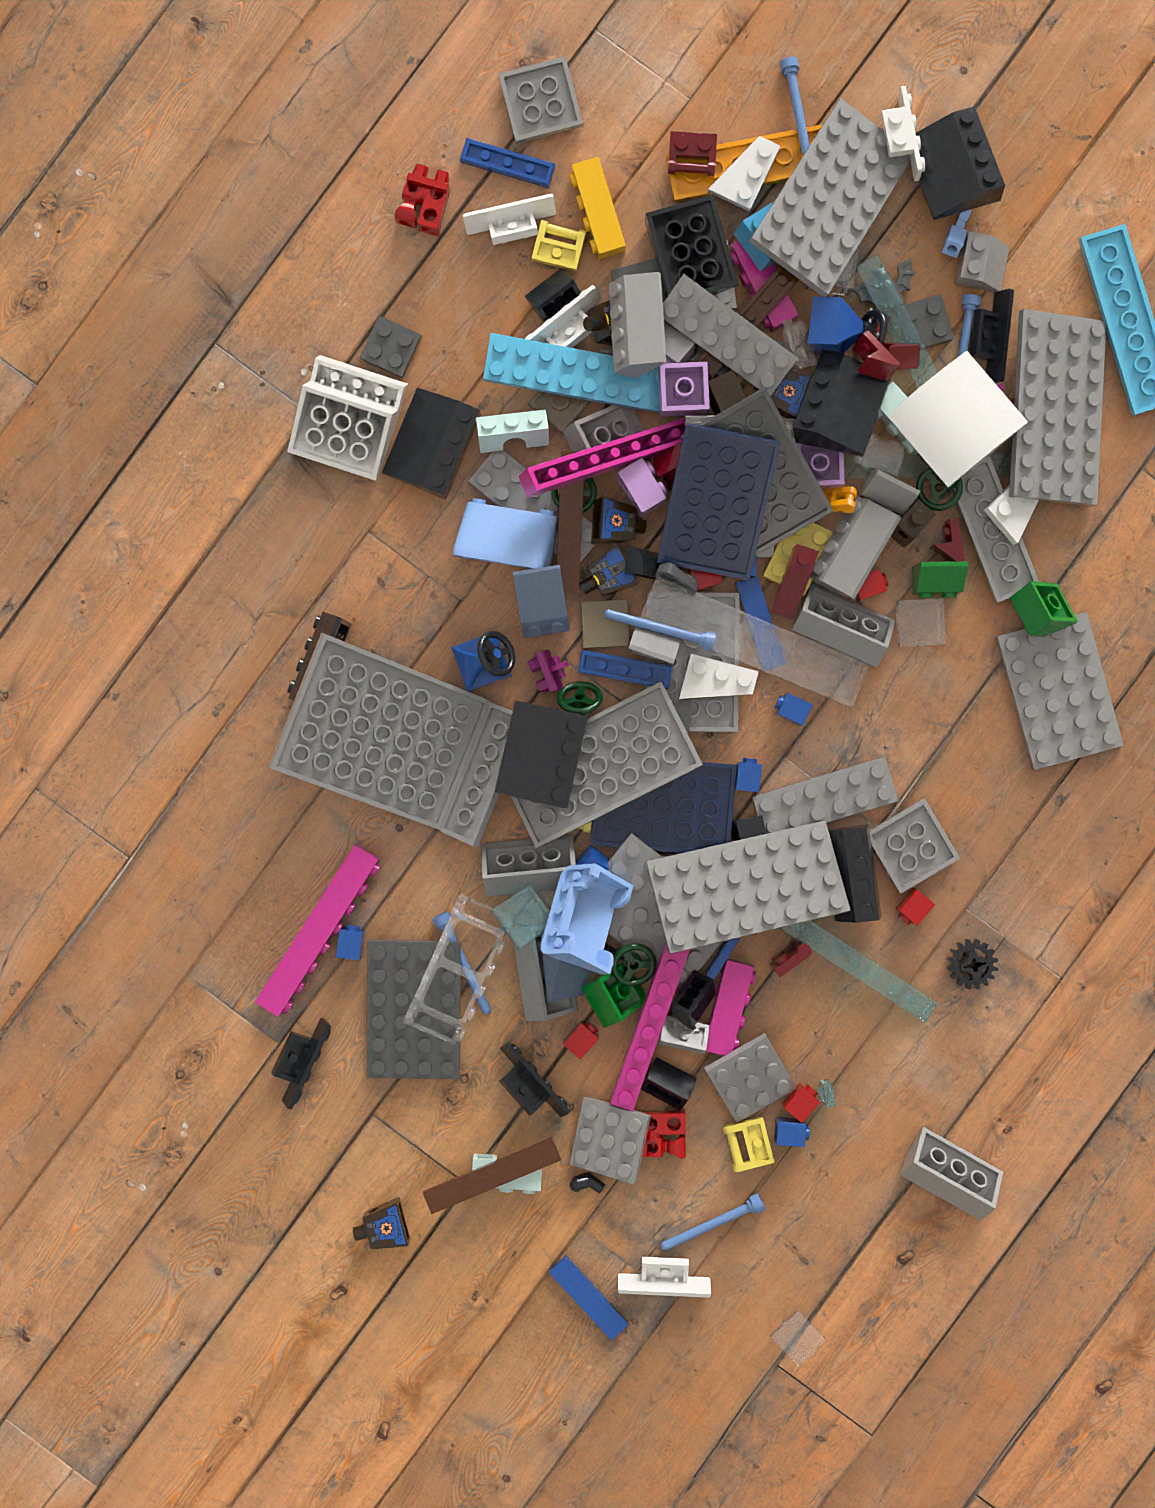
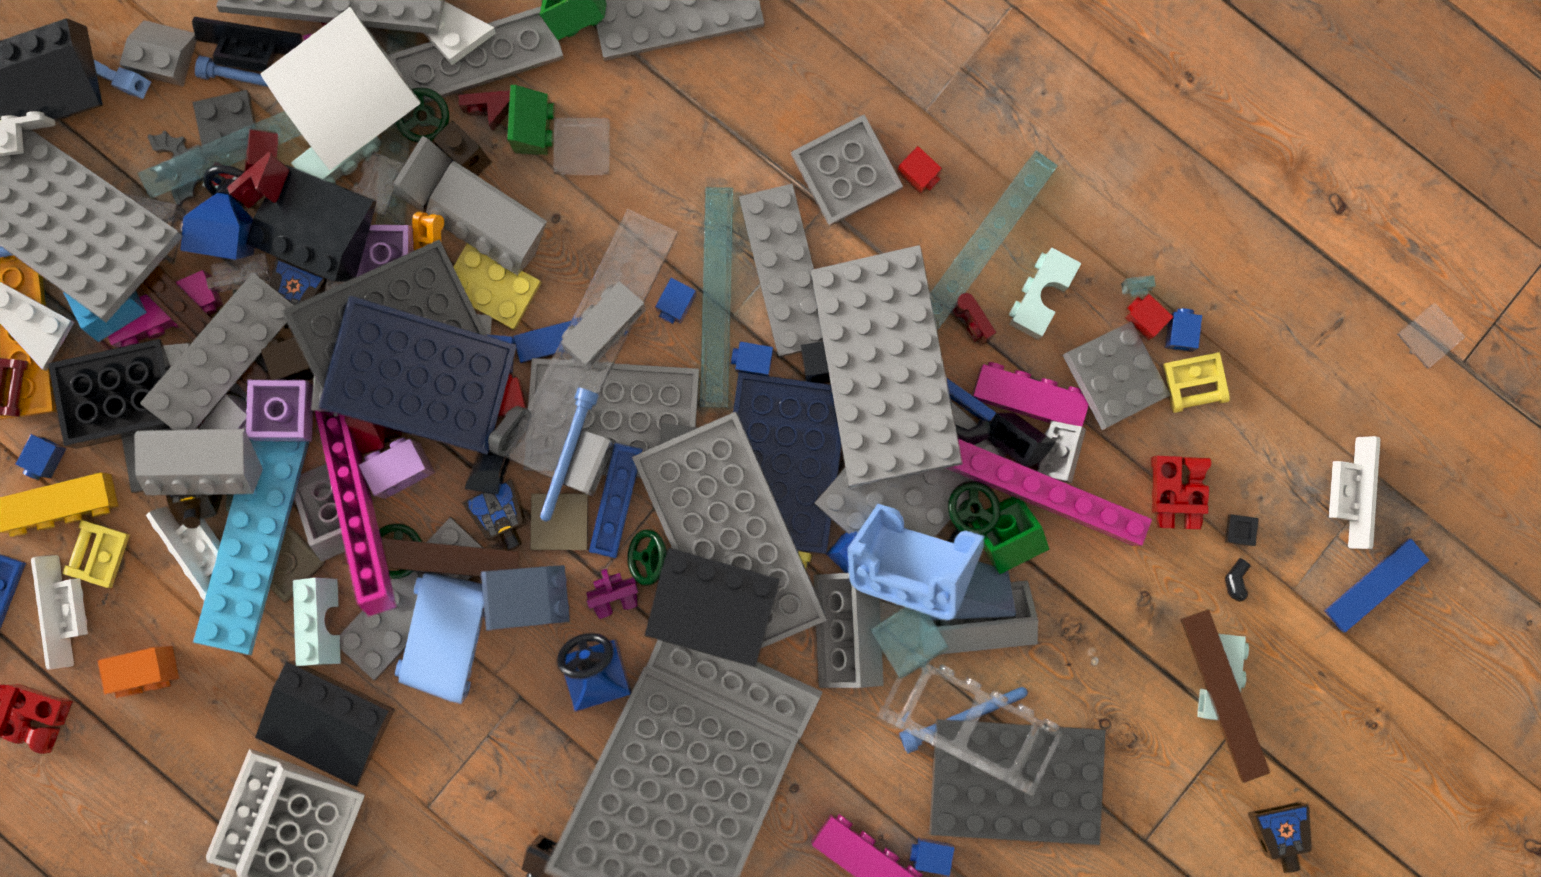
camera: 90 degrees left, 5 degrees down
(390, 346) = (202, 767): dark grey plate -> none
(467, 293) = (136, 670): none -> orange brick
(527, 1086) = (1117, 645): black bracket -> none
(552, 294) = (155, 564): black brick -> none
(581, 1038) = (1062, 577): red brick -> none
(610, 1140) = (1186, 548): light grey plate -> none
(614, 522) = (436, 503): torso -> none
(628, 1190) = (1241, 530): none -> black plate
(635, 193) = (40, 457): none -> blue brick
(668, 1083) = (1120, 474): black brick -> none
(694, 963) = (977, 434): none -> black arm
(715, 678) = (633, 391): white wing -> none
(753, 1205) = (1270, 380): medium blue piece -> none
(769, 650) = (602, 325): none -> light grey brick
(794, 581) = (521, 291): dark red slope -> none
(798, 1005) = (1054, 271): none -> light aqua arch
(799, 742) = (716, 297): none -> clear light blue tile
(844, 625) = (579, 236): light grey slope -> none
(858, 874) = (872, 235): black slope -> none
(873, 585) = (533, 198): red brick -> none
(952, 1174) = (1239, 142): light grey slope -> none
(975, 973) = (980, 110): black gear -> none

